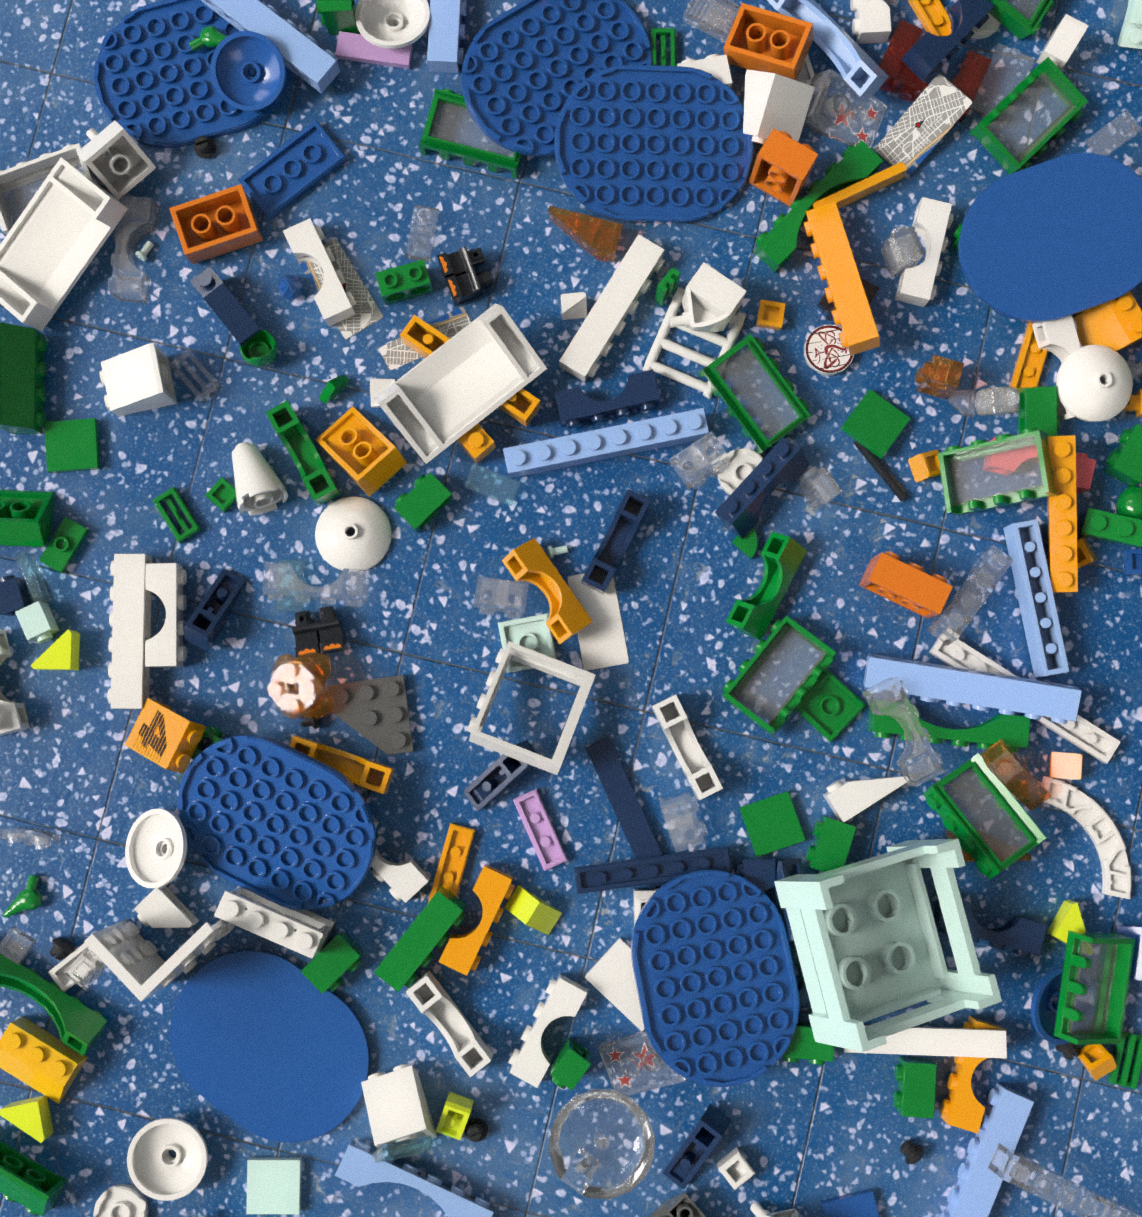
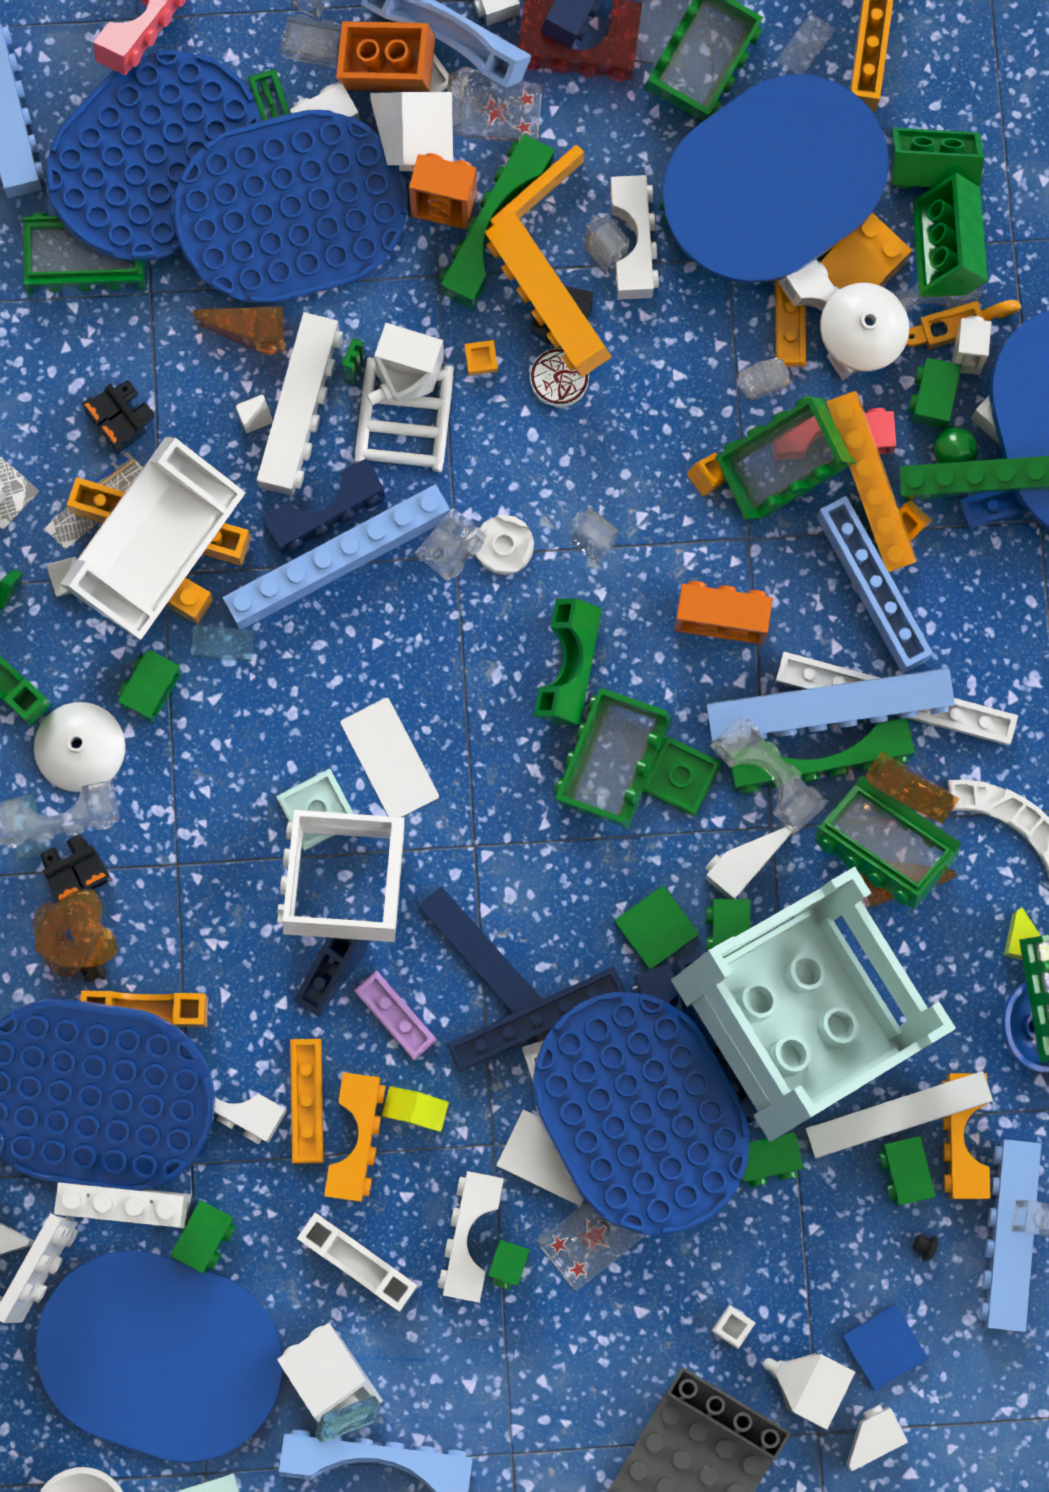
camera: 20 degrees left, 5 degrees down
(361, 451) = (61, 649): light orange slope -> none
(376, 711) = (168, 939): dark grey plate -> none
(404, 282) = (52, 444): green brick -> none
(420, 938) = (295, 1178): green brick -> none
(422, 233) = (56, 383): clear slope -> none
(454, 1116) = (395, 1370): neon yellow slope -> none
(476, 1129) = (425, 1377): black piece -> none
(501, 596) = (271, 765): clear brick -> none
(532, 565) = (296, 719): light orange arch -> none
(556, 551) = (313, 698): light aqua piece -> none
(602, 1143) = (571, 1340): clear piece -> none
(616, 541) = (383, 664): dark blue arch -> none
(682, 821) = (554, 955): clear brick -> none
(686, 747) = (529, 867): white arch -> none
(697, 1146) = (681, 1315): dark blue slope -> none
(742, 507) = (514, 583): dark blue arch -> none
(748, 544) = (531, 619): green tile -> none
(756, 393) = (490, 450): window -> none
(875, 423) = (636, 444): green tile -> none
(883, 472) = (658, 493): black bar -> none
(923, 124) = (588, 96): light grey sticker -> none
(939, 377) = (689, 371): clear orange brick -> none
(963, 401) = (727, 390): clear tile -> none
(971, 596) = (799, 602): clear arch -> none
(1018, 933) = (973, 965): dark blue arch -> none
(1039, 409) = (813, 373): green brick -> none
(1066, 765) = (966, 761): slope -> none

